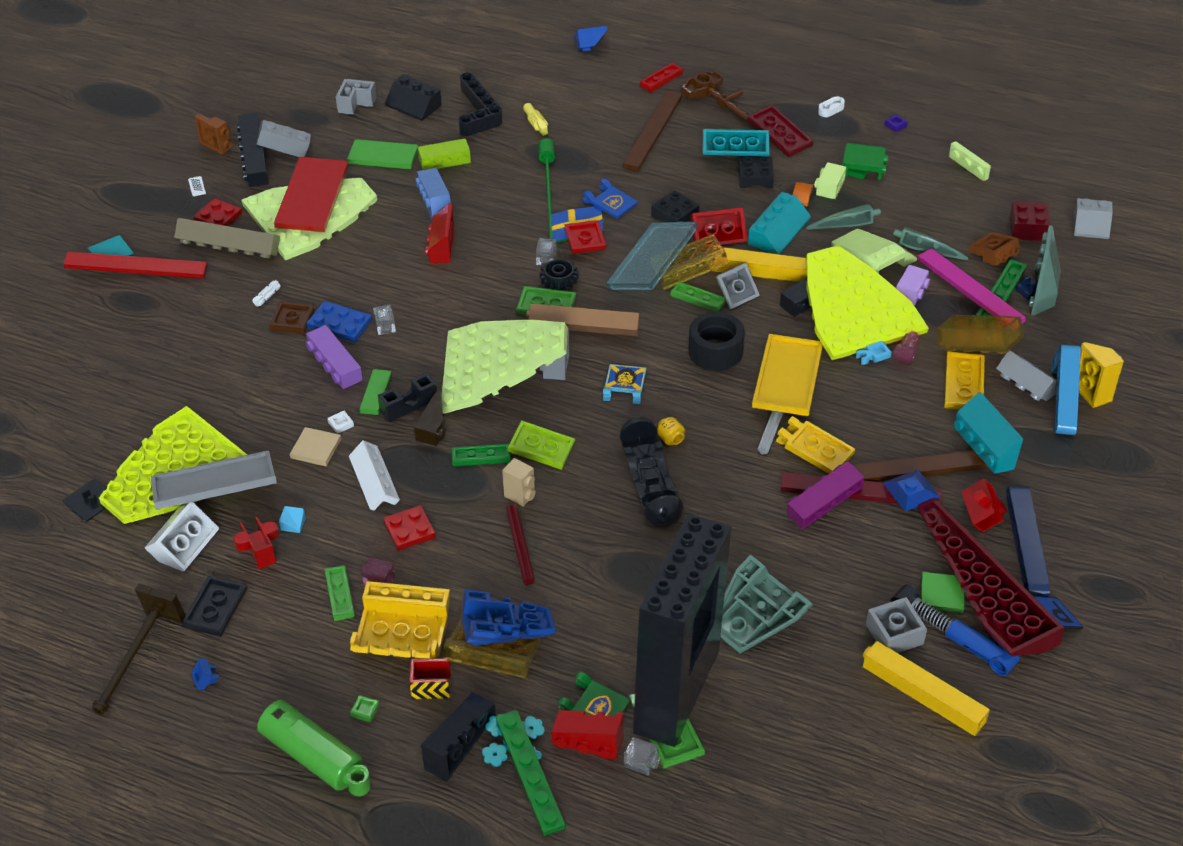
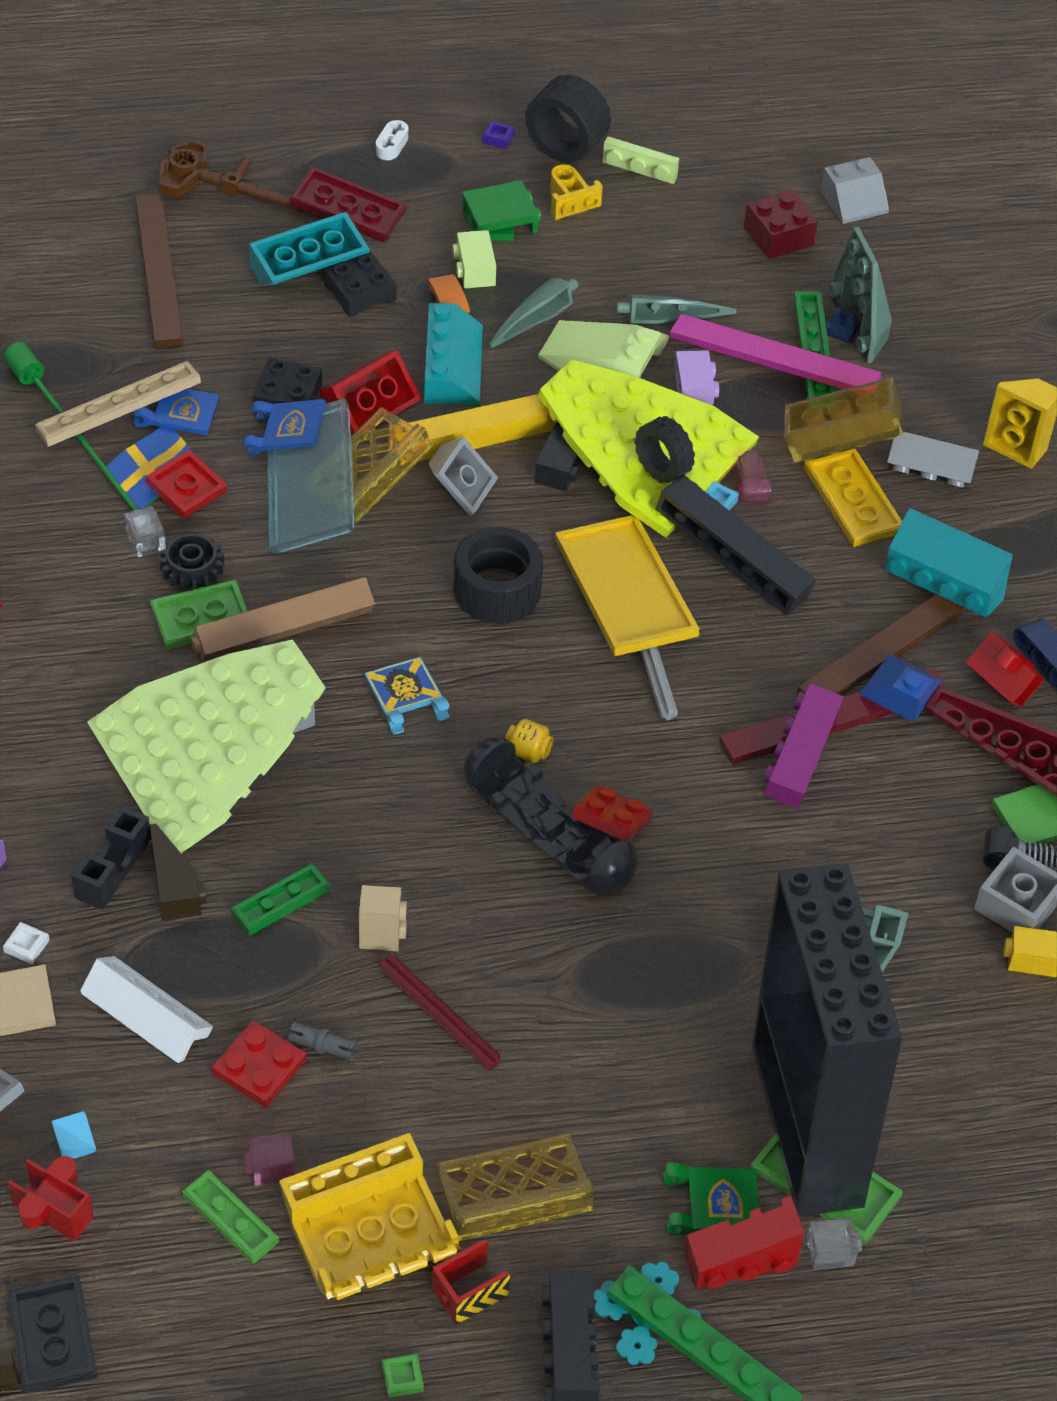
camera: 35 degrees left, 5 degrees up
(377, 384) = (46, 869): bright green tile -> none
(448, 530) = (323, 1041): none -> dark grey pin
(499, 621) = (513, 1145): blue wedge -> none
(541, 445) = (360, 844): lime tile -> none
(578, 185) = (117, 403): none -> tan tile
(660, 226) = (287, 426): none -> blue flag
(661, 77) = (108, 177): red tile -> none
(687, 485) = (612, 813): none -> red plate
(698, 297) = (414, 514): bright green tile -> none
(814, 445) = (733, 677): yellow tile -> none
(852, 307) = (675, 441): none -> black tyre
(865, 376) = (735, 544): none -> black brick
(914, 165) = (571, 192): none -> yellow pin
(935, 123) = (582, 104): none -> black tyre
(995, 248) = (764, 281): dark orange plate -> none
(1067, 367) = (988, 423): dark azure beam -> none

